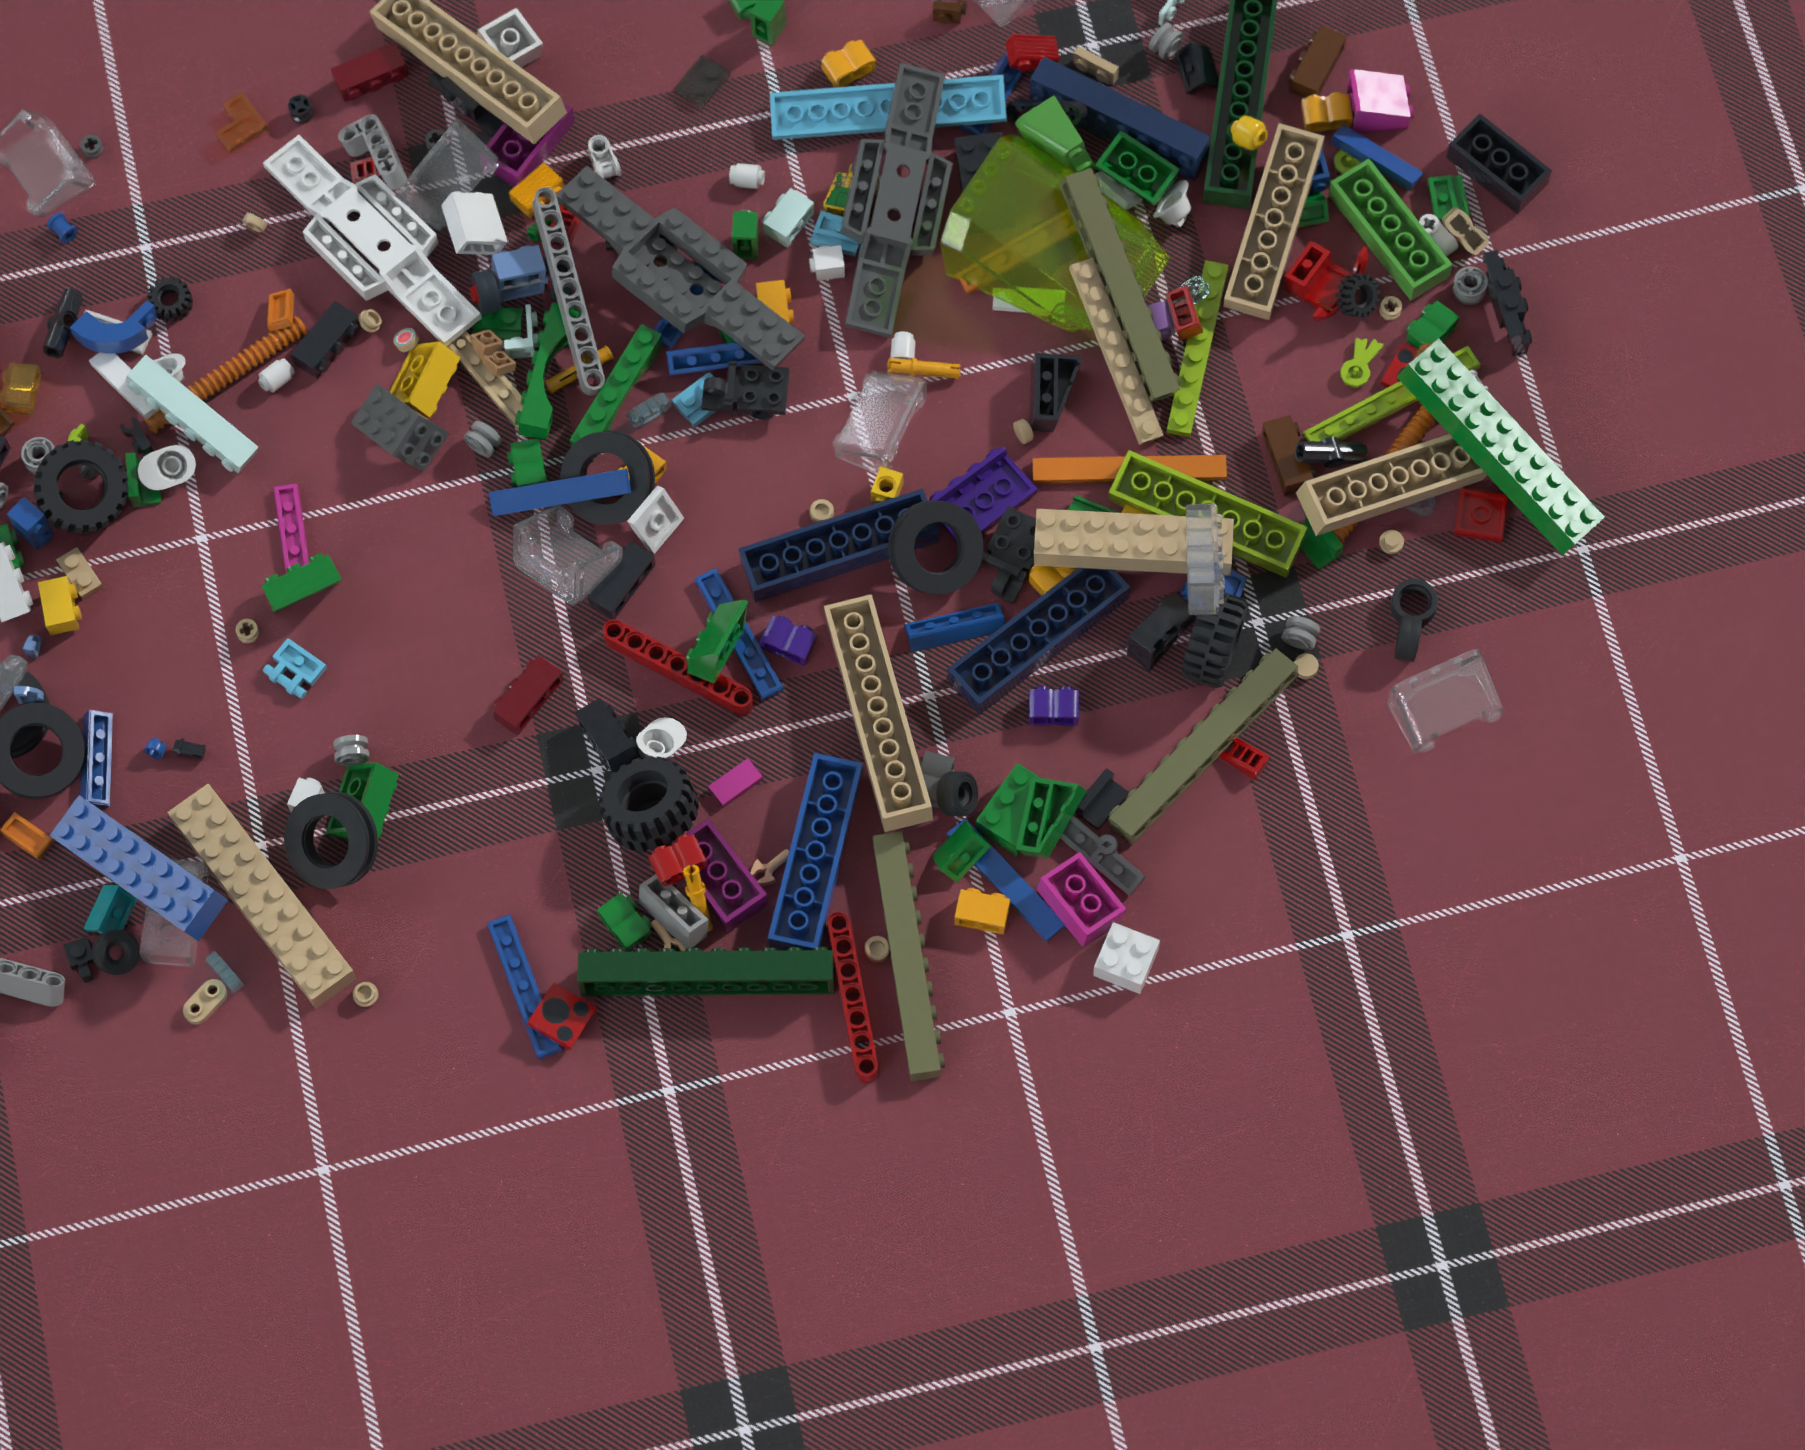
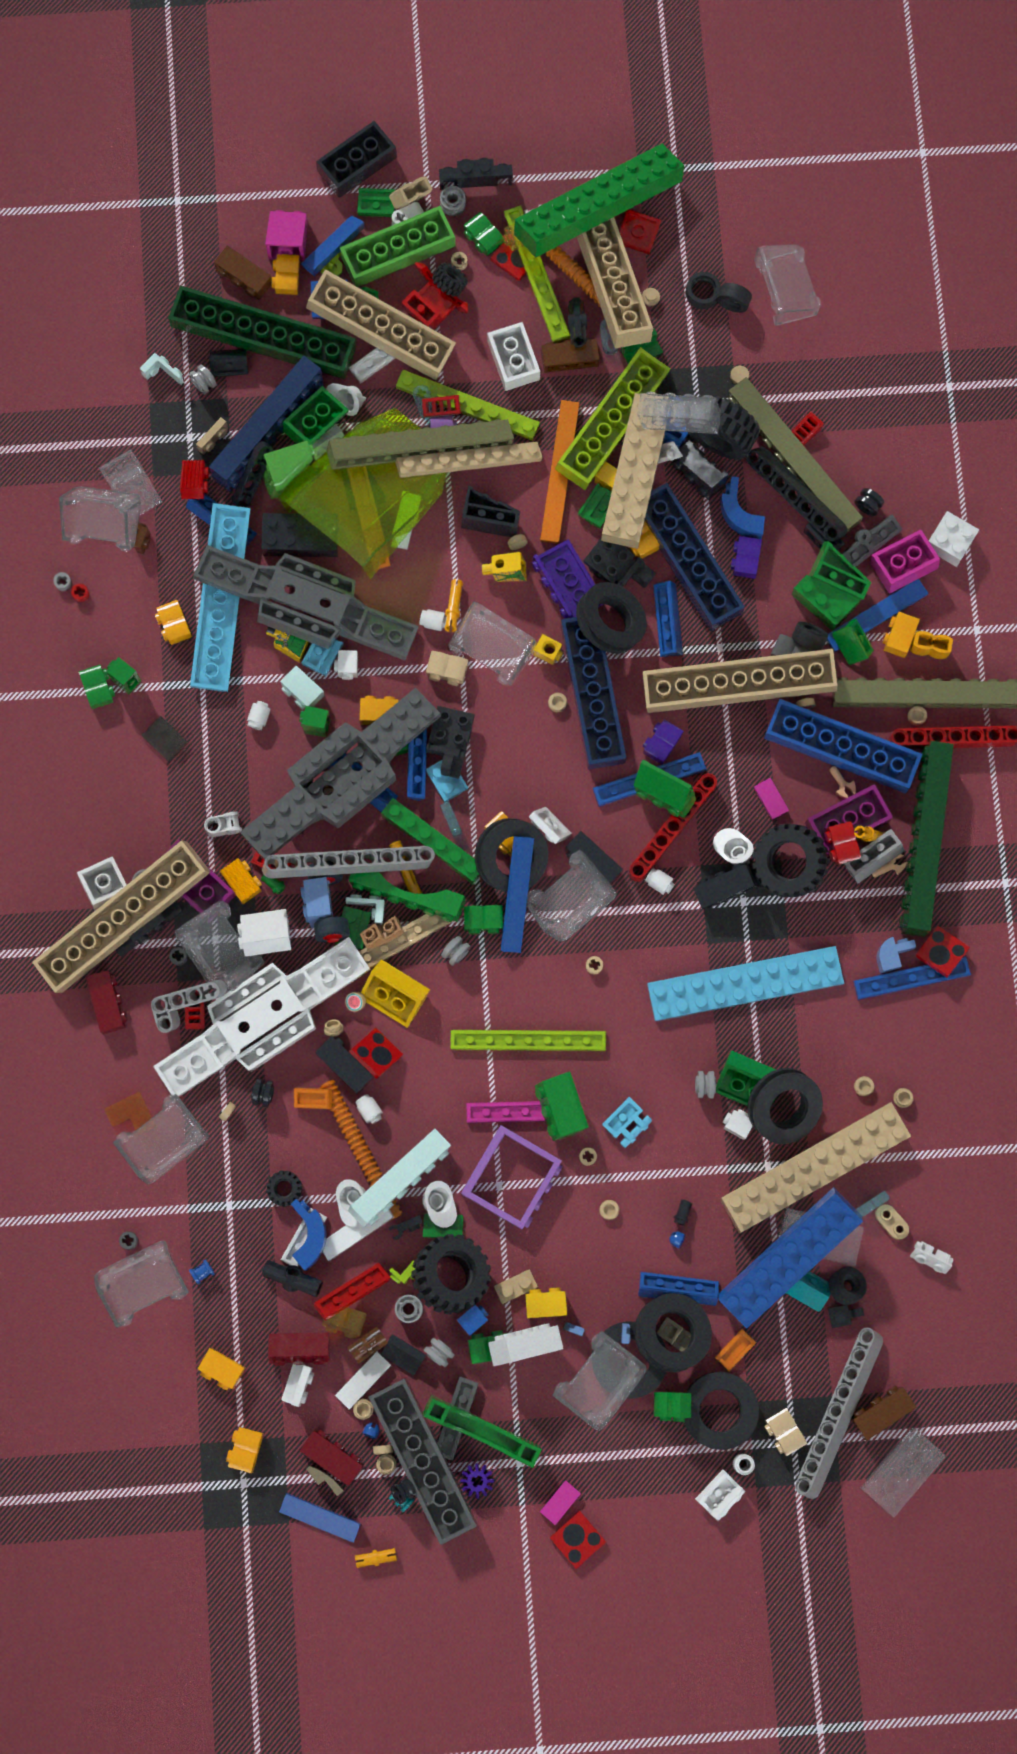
camera: 85 degrees left, 10 degrees up
(39, 758) = (674, 1334): none -> dark tan slope
(51, 386) = (351, 1291): none -> red plate
(167, 1044) = (939, 1262): none -> white hinge
(184, 665) = (609, 1209): none -> tan tile
(207, 155) = (162, 1140): none -> clear windscreen
(226, 512) = (545, 1186): none -> medium lavender window
(280, 255) = (262, 1093): none -> black wheel
(298, 103) = (125, 1061): black wheel -> none
(344, 370) = (376, 1053): none -> red tile
(375, 945) = (863, 1086): none -> tan tile
(384, 543) = (528, 1040): none -> lime tile
(399, 428) = (435, 1017): dark grey bracket -> none
(481, 602) = (597, 960): none -> tan bush
(490, 786) = (745, 983): none -> medium azure plate
(527, 694) = (677, 944): dark red brick -> none
(550, 949) = (888, 956): none -> medium blue brick
(605, 662) = (660, 881): none -> white brick
(625, 922) = (873, 895): green brick -> none
(843, 375) = (447, 668): none -> tan brick
(867, 805) = (806, 703): none -> tan tile
(972, 948) = (927, 644): none -> light orange brick
(984, 415) = (506, 567): none -> yellow torso
(1108, 683) = (737, 519): none -> blue arch
(1149, 751) = (804, 497): none -> black beam
(1157, 846) = (869, 502): none -> black wheel
(1170, 582) = (669, 452): none -> white hinge
(1225, 226) = (370, 364): none -> white tile
(1249, 133) = (305, 327): yellow head -> none
(1269, 386) = (513, 356): none -> white brick
(1301, 632) = (716, 371): light grey wheel -> none
(1356, 371) = (508, 295): lime piece -> none

